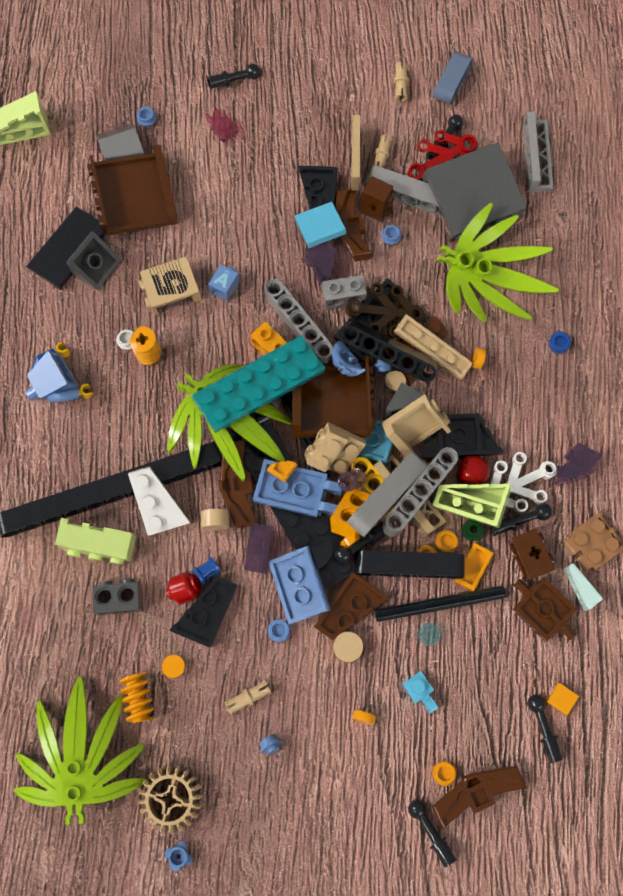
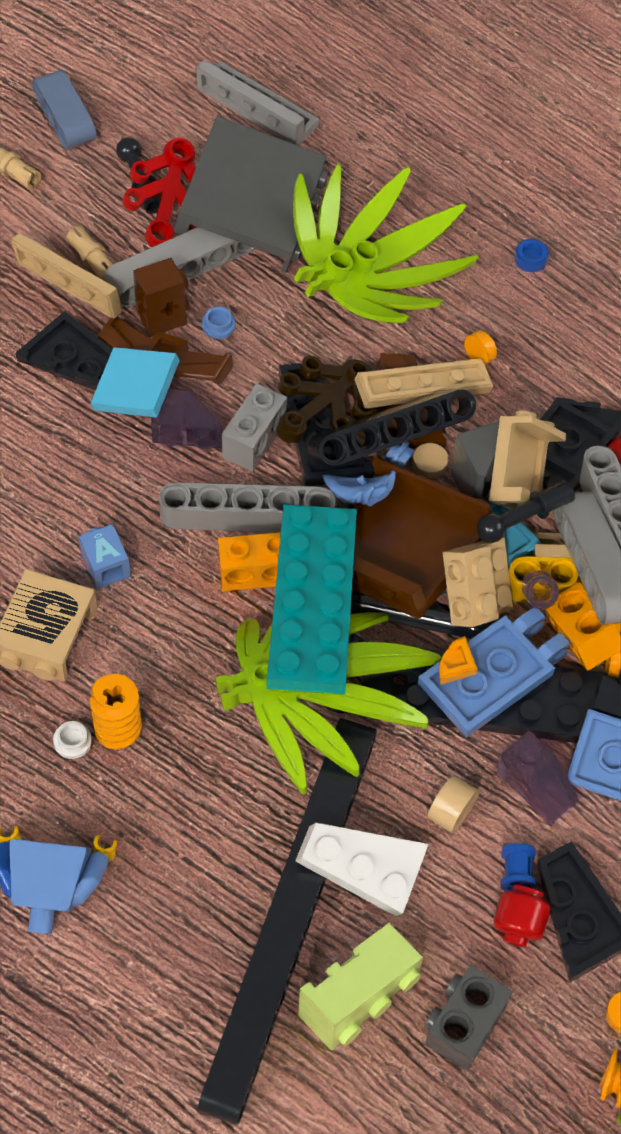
camera: 55 degrees left, 15 degrees down
(235, 490) = (428, 751): reddish brown plate -> none
(362, 434) = (493, 527): none -> black pin

